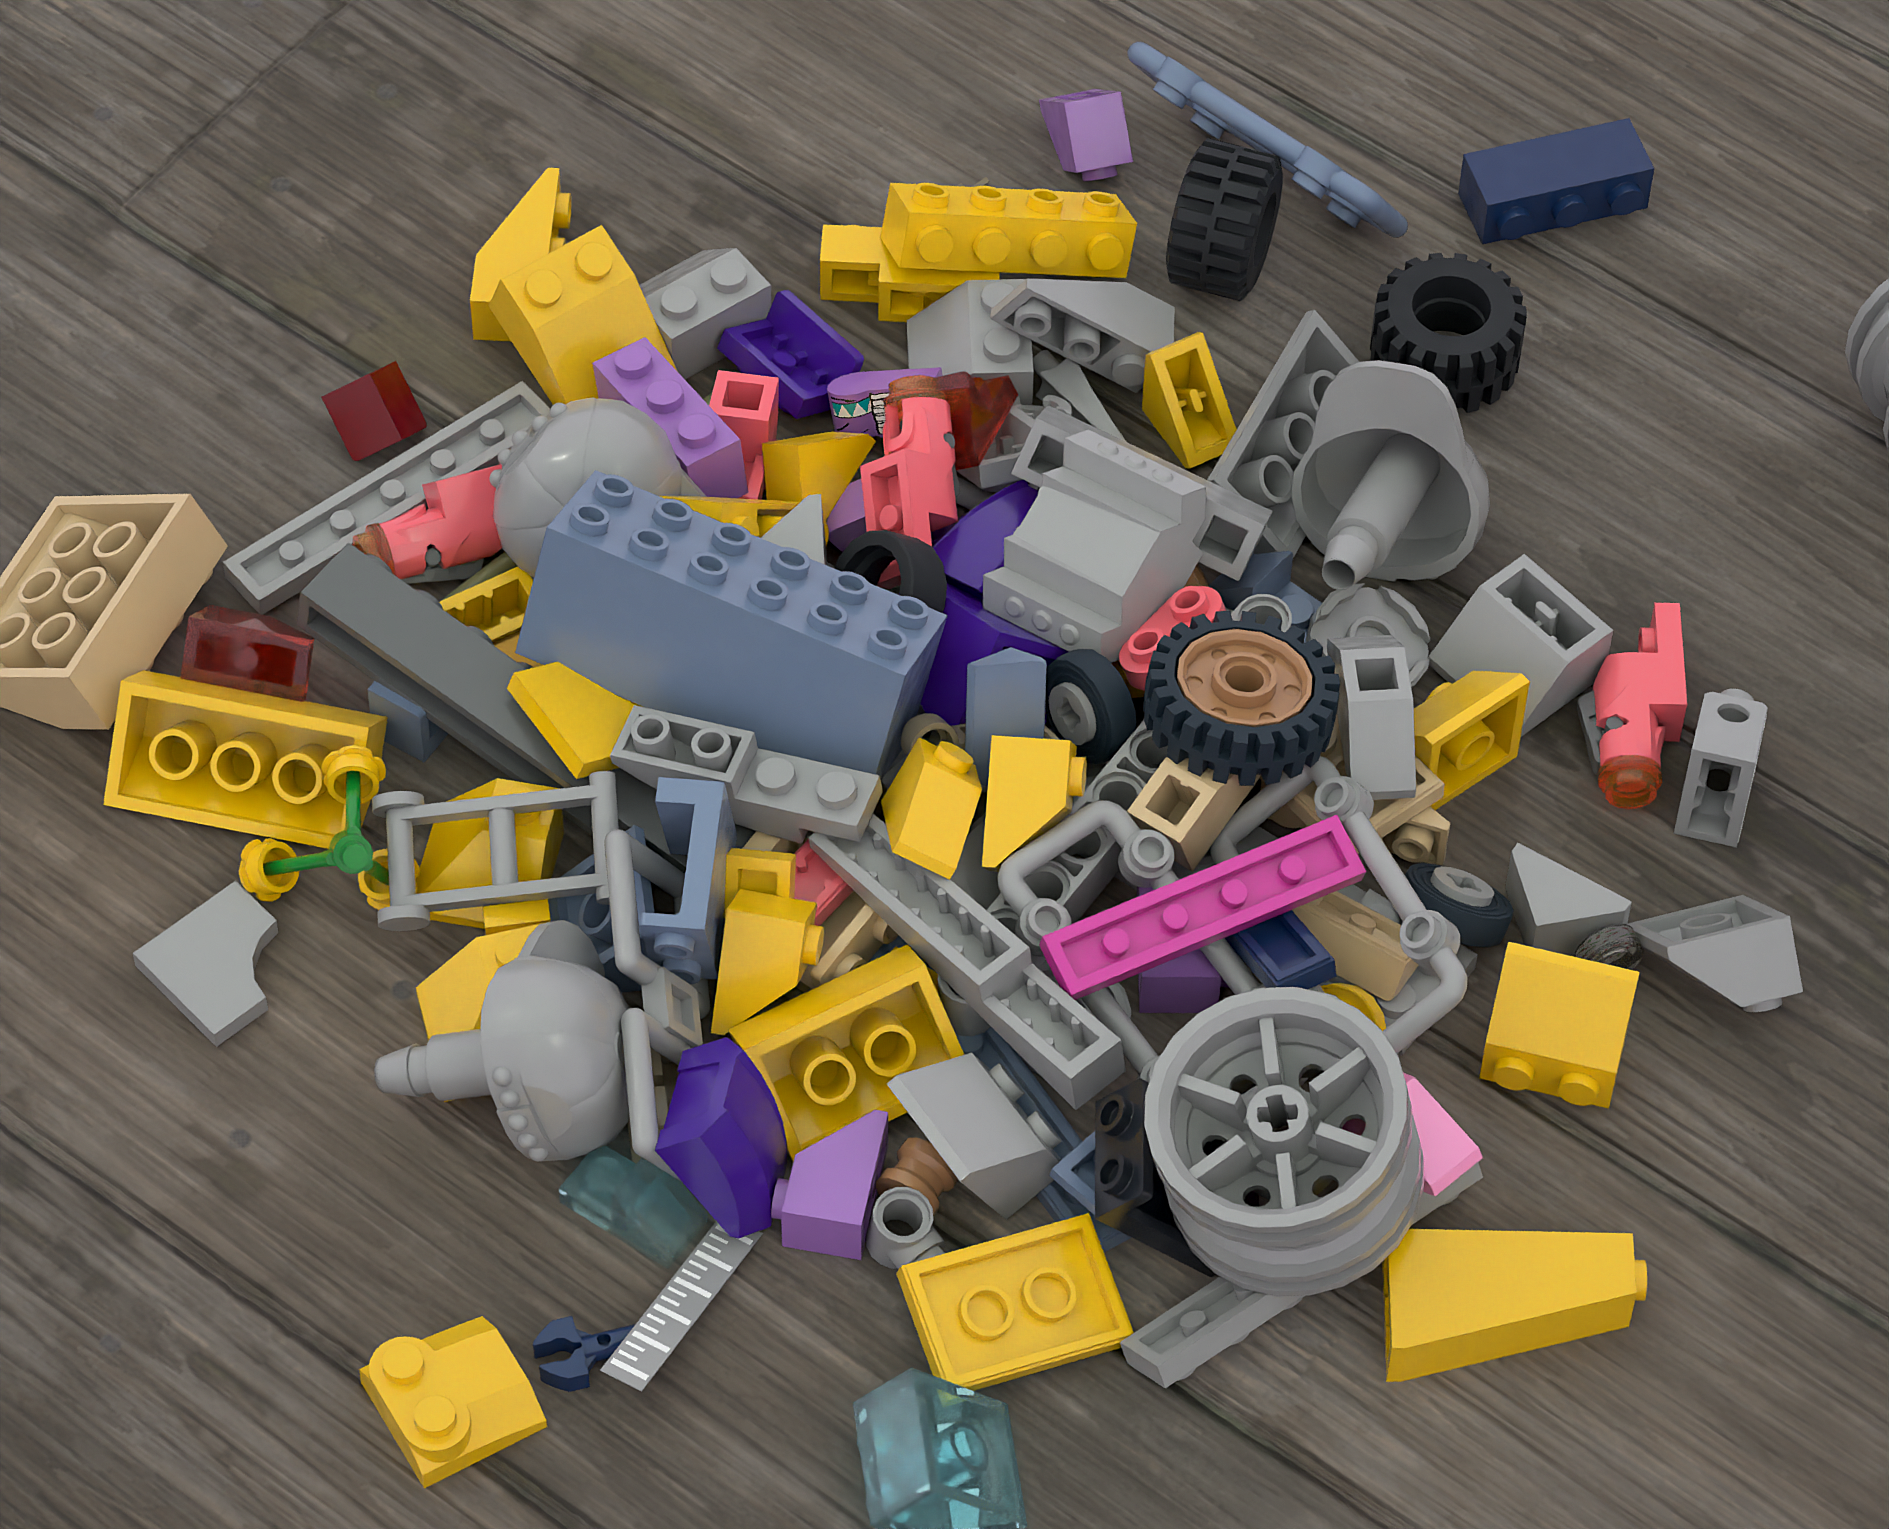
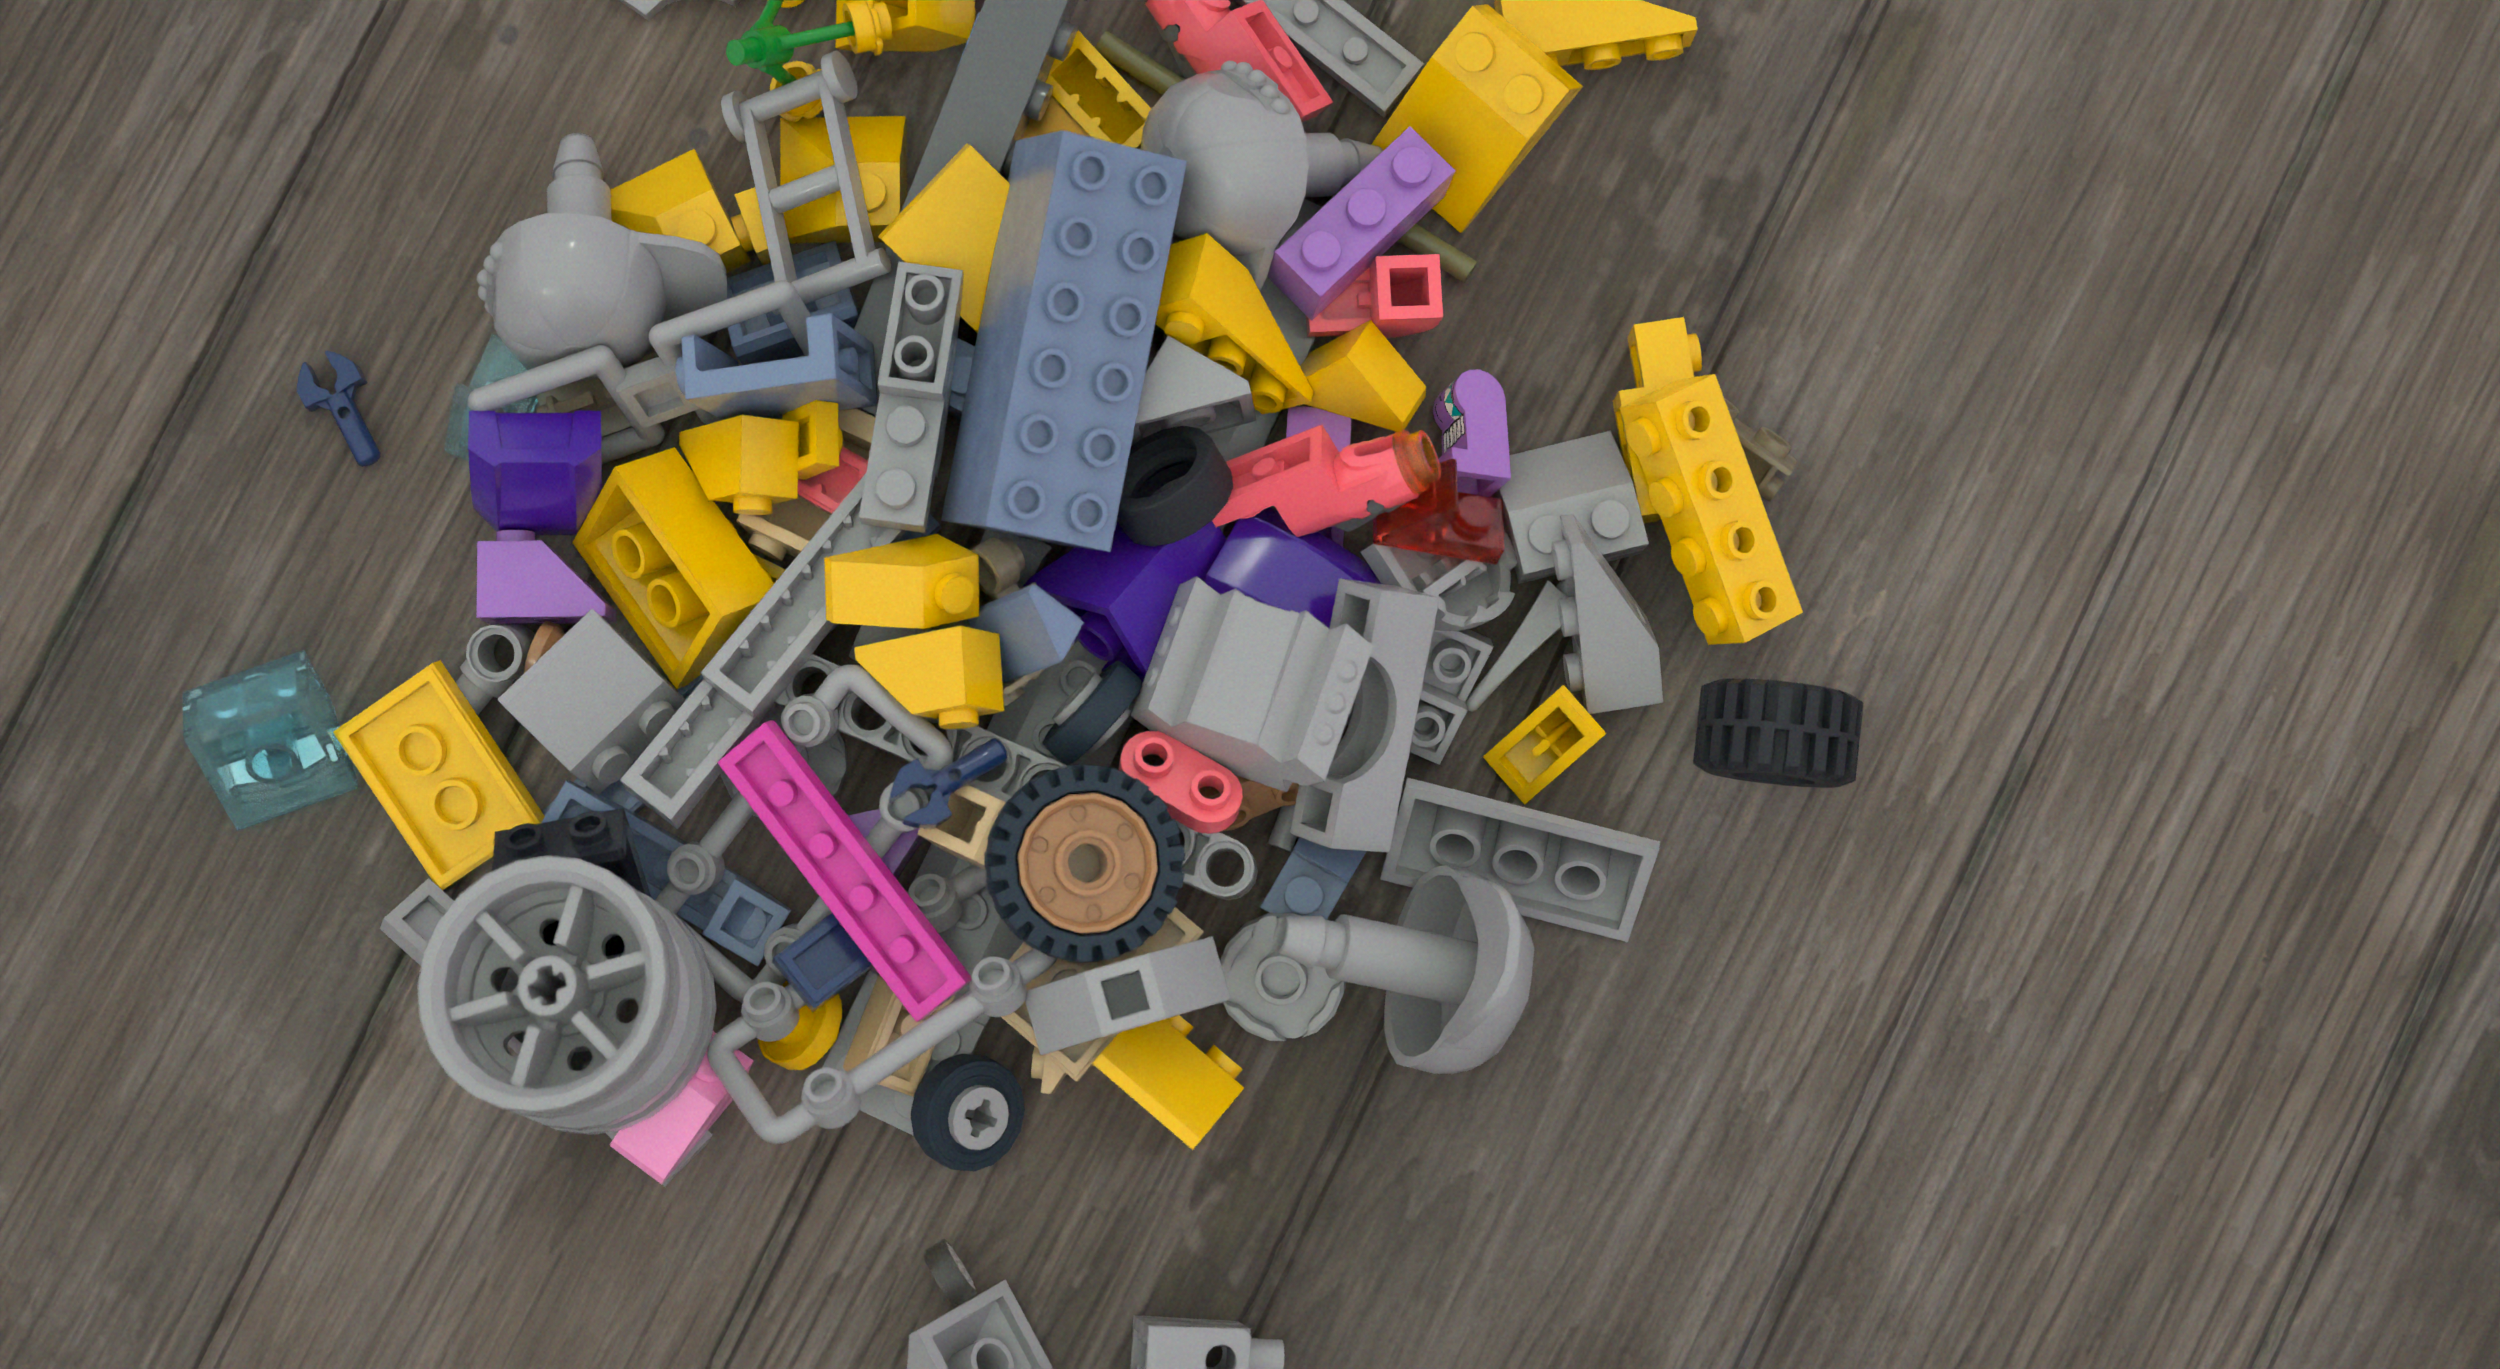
camera: 80 degrees right, 30 degrees up
(451, 1397) = (263, 290): yellow slope -> none
(678, 1307) = (382, 468): light grey sticker -> none
(701, 300) = (1565, 207): light grey slope -> none
(794, 348) = (1517, 323): dark purple bracket -> none
(1088, 132) = (1905, 563): medium lavender slope -> none
(1124, 819) = (944, 782): none -> dark blue bar
(1311, 170) = (1831, 817): sand blue bar -> none
(1457, 299) = (1754, 984): black tyre -> none
(1501, 1294) = (545, 1225): yellow slope -> none
(1528, 627) = (1294, 1131): light grey slope -> none
(1555, 181) = (1948, 1079): dark blue brick -> none
(1558, 905) = (991, 1215): light grey slope -> none
(1558, 1025) = (831, 1235): yellow slope -> none
(1634, 709) = (1251, 1249): coral plate -> none

